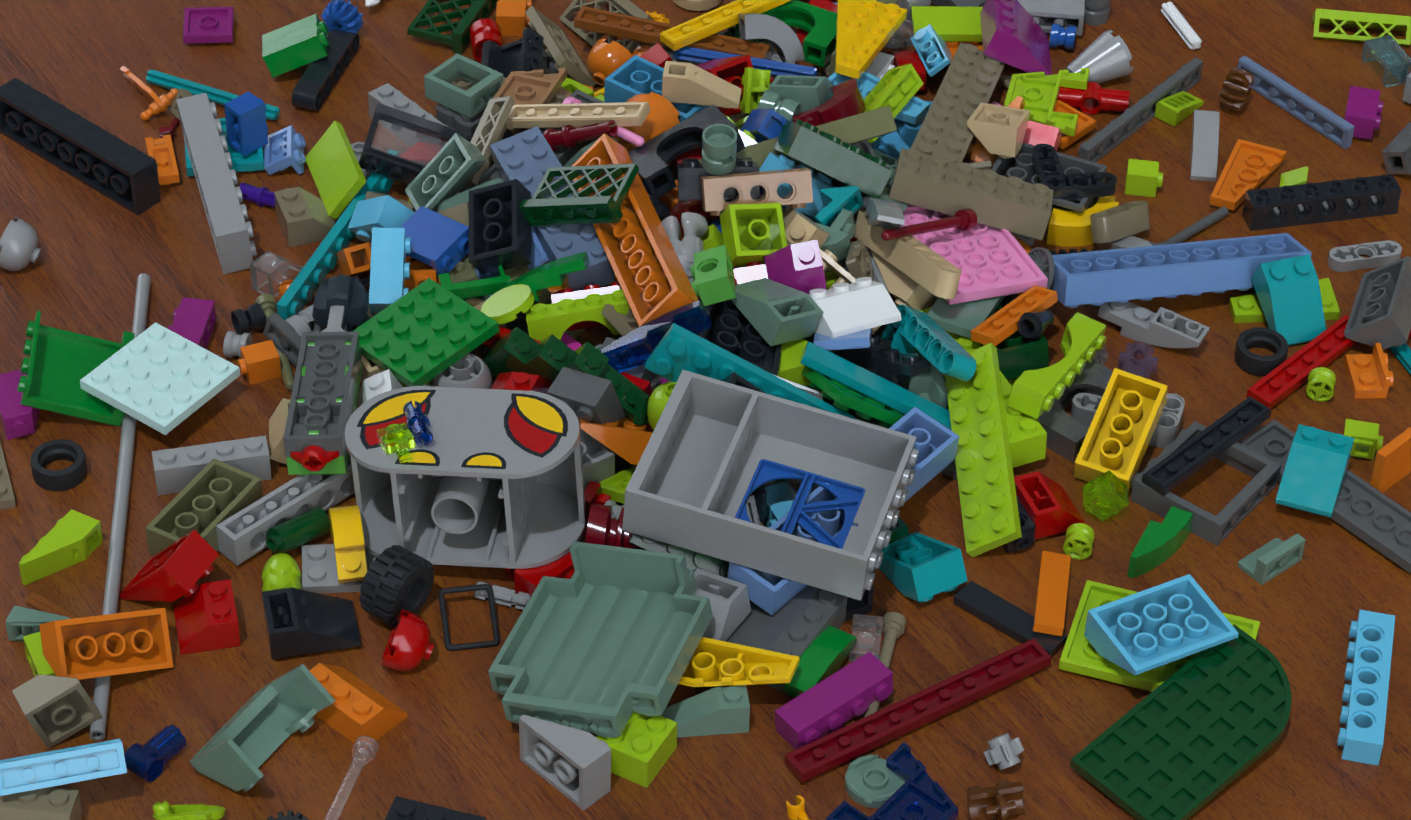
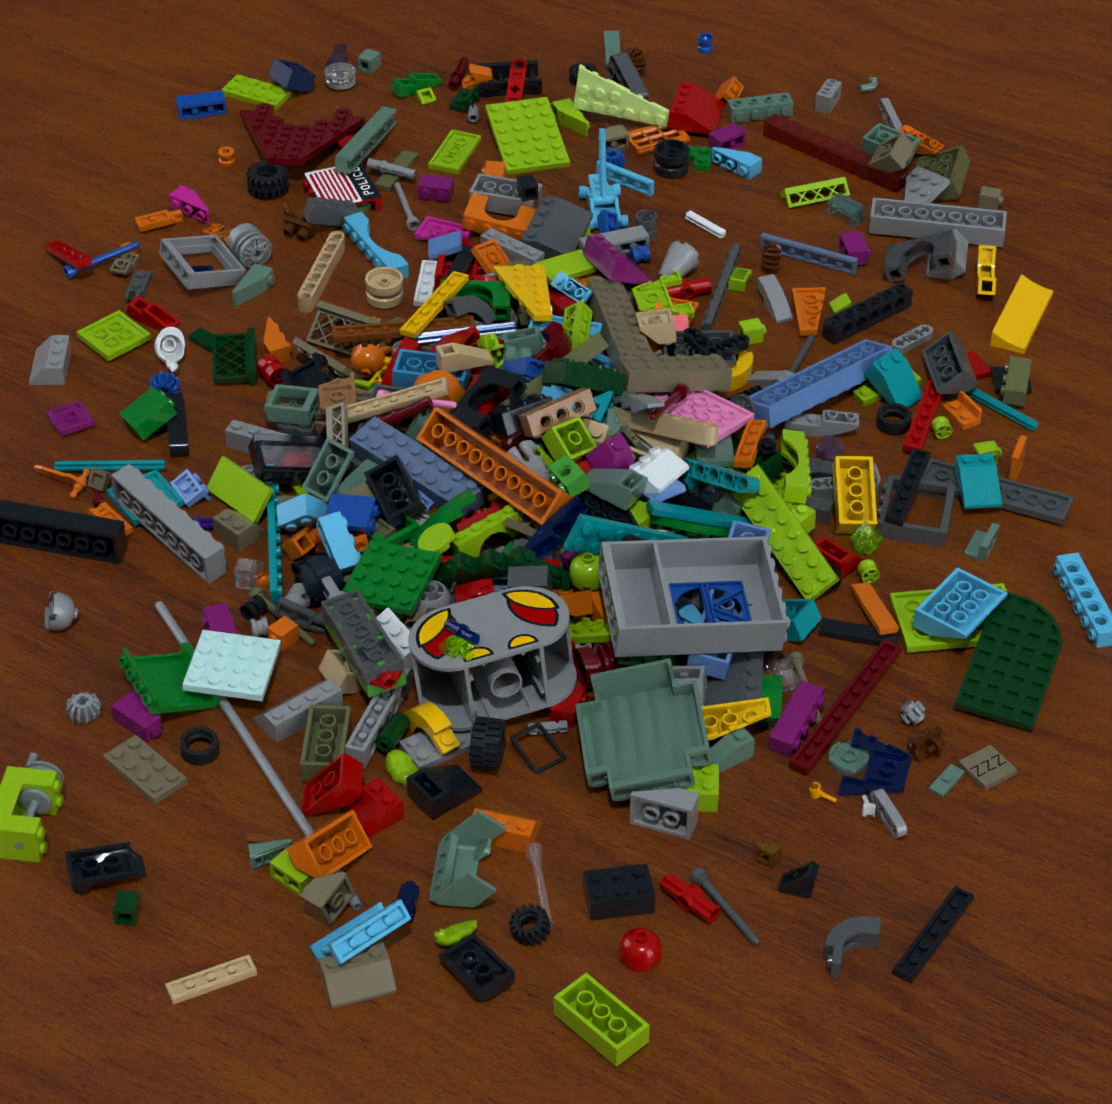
camera: 25 degrees left, 0 degrees up
(64, 545) = (246, 796): lime slope -> none
(246, 123) = (162, 474): blue brick -> none
(407, 643) = (513, 777): red cylinder -> none
(579, 207) = (446, 462): dark green fence -> none
(719, 149) = (526, 392): sand green wheel -> none
(1120, 221) = (761, 363): dark tan beam -> none
(1160, 541) = (914, 555): green slope -> none

